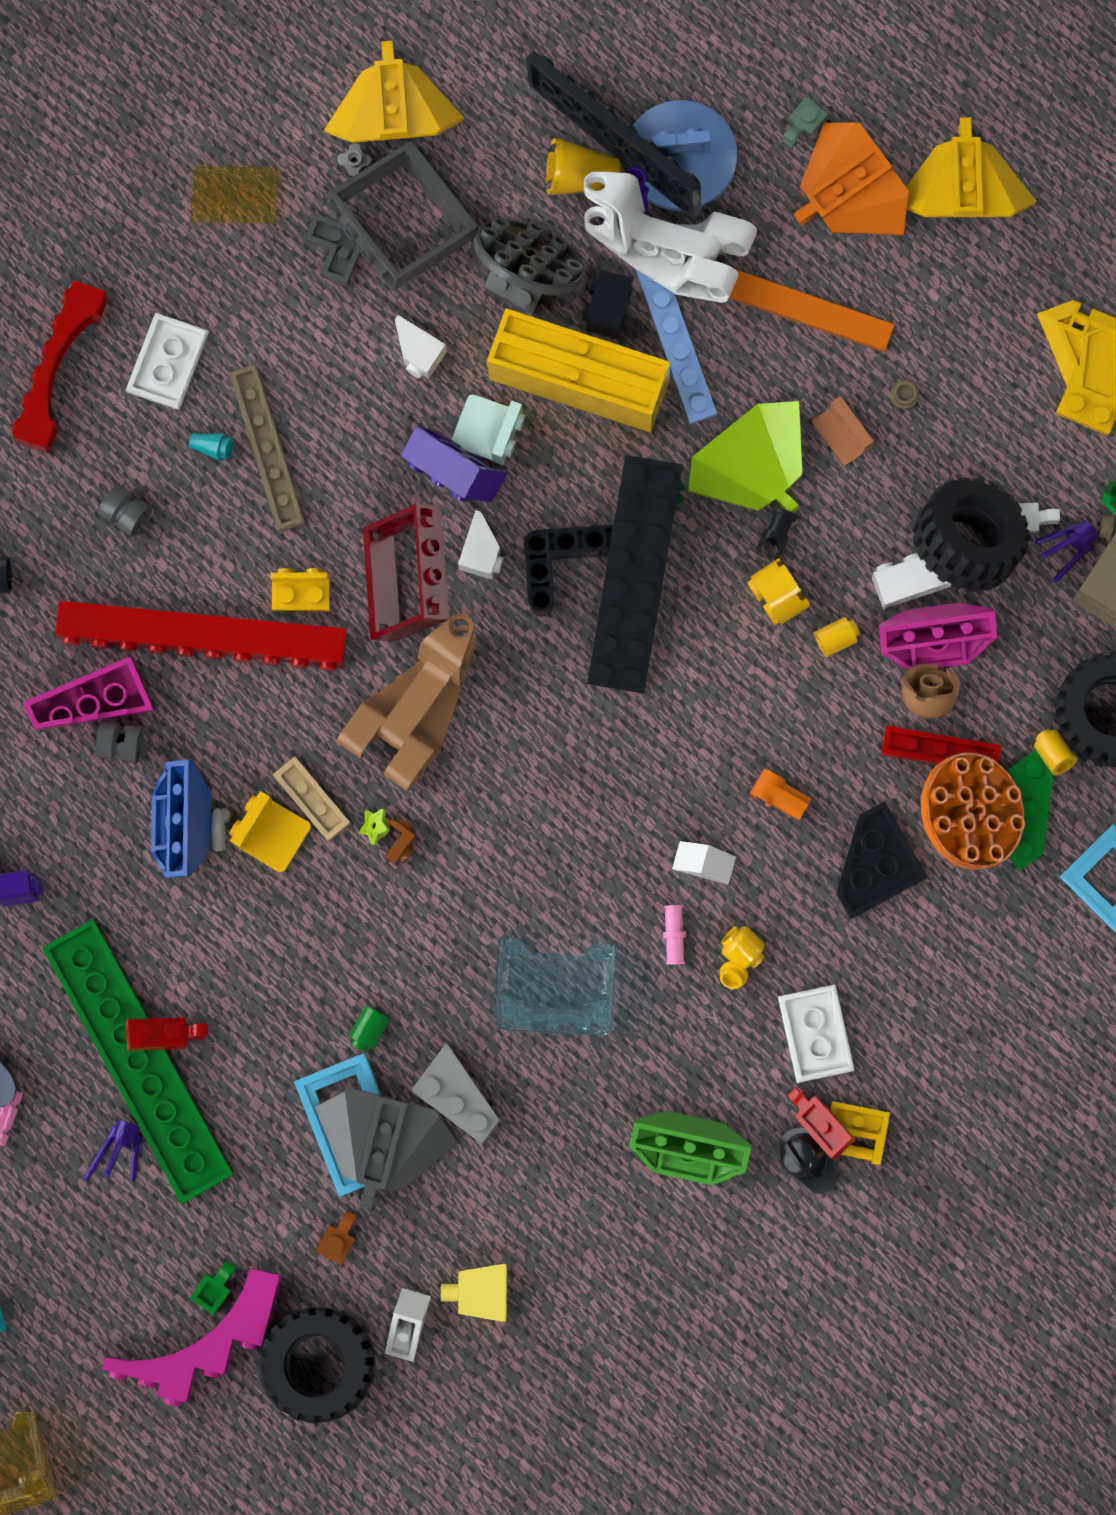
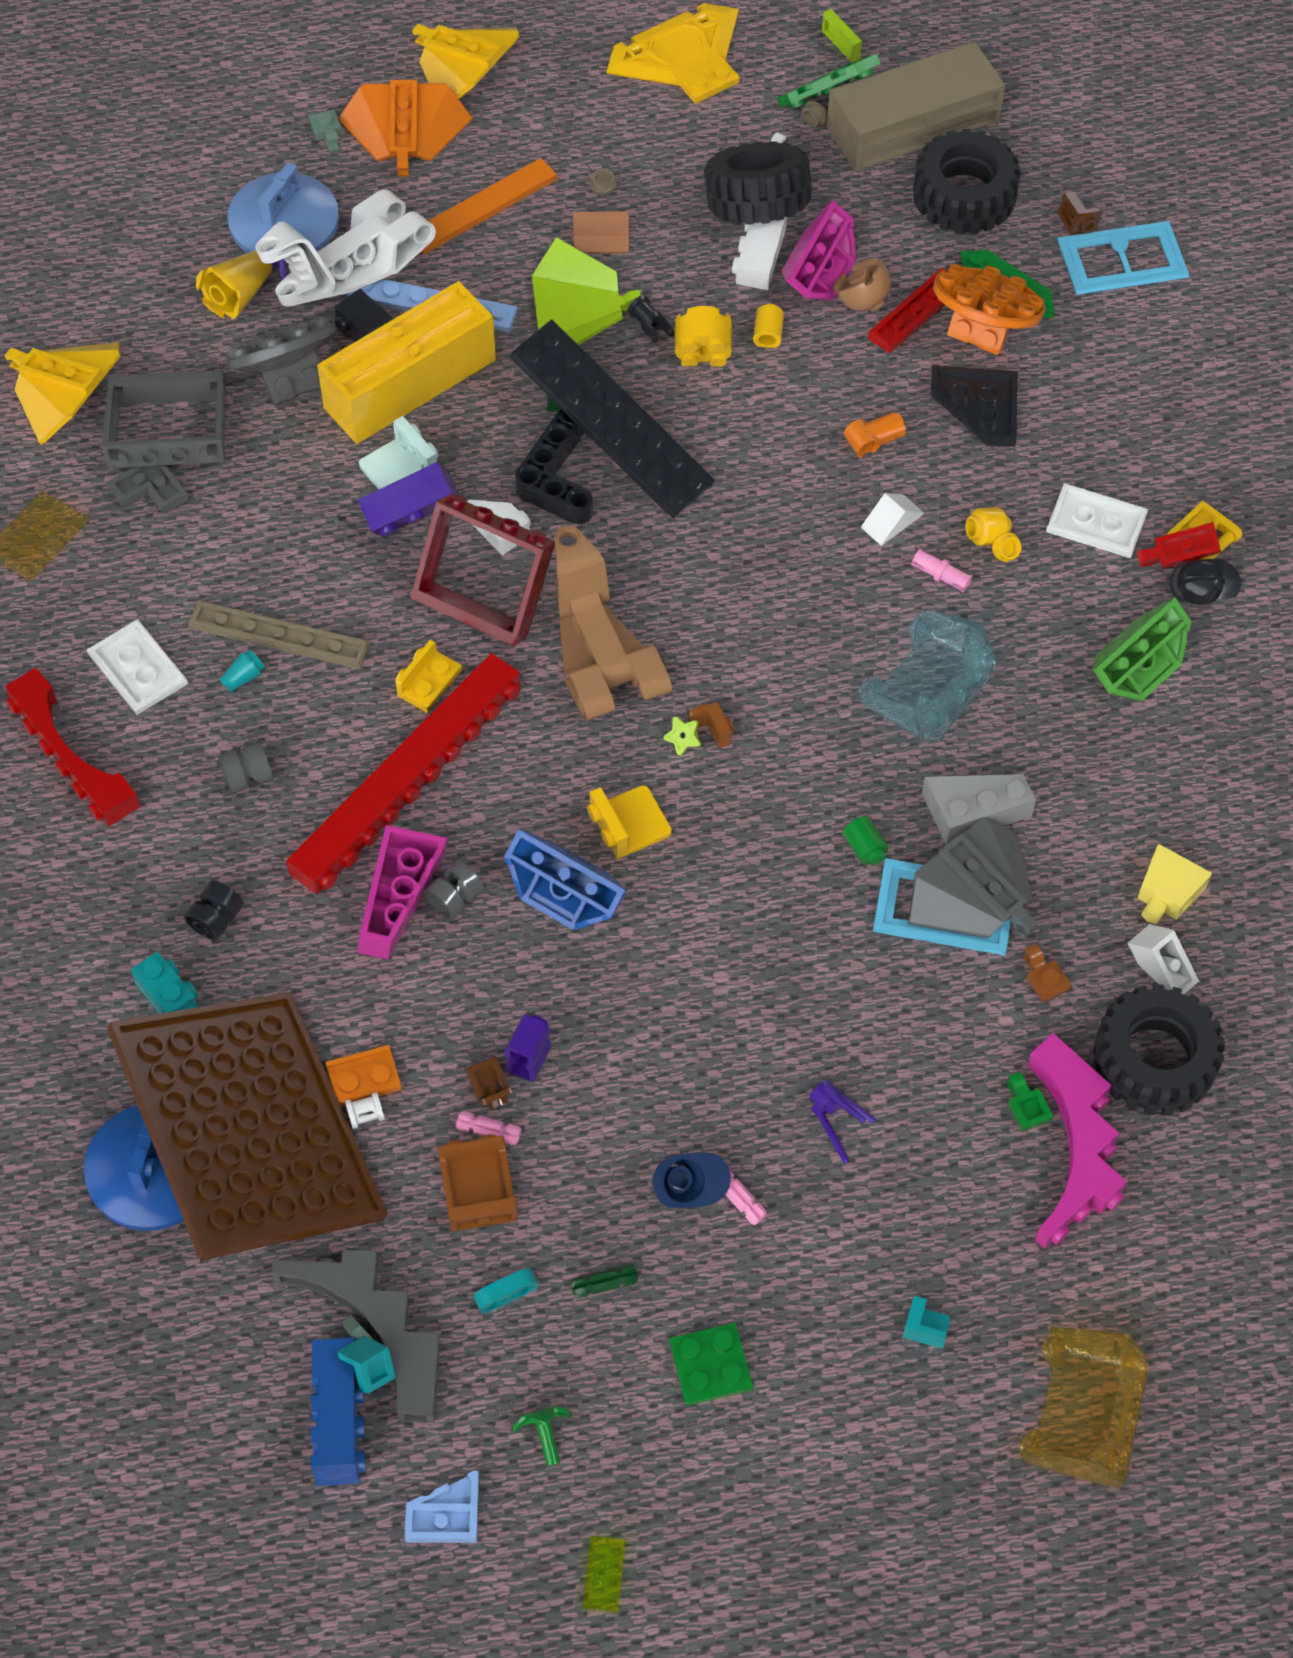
camera: 65 degrees left, 20 degrees down
(144, 1076) = (764, 1048): green plate -> none
(162, 1033) = (755, 1006): red plate -> none
(218, 834) = (592, 855): light grey arm -> none
(311, 799) = (622, 771): tan plate -> none
(354, 152) = (88, 439): light grey plate -> none
(419, 349) = (286, 474): white slope -> none
(613, 134) = (228, 232): black plate -> none
(1055, 751) = (972, 236): yellow brick -> none
(1078, 536) = (808, 137): dark purple plant -> none

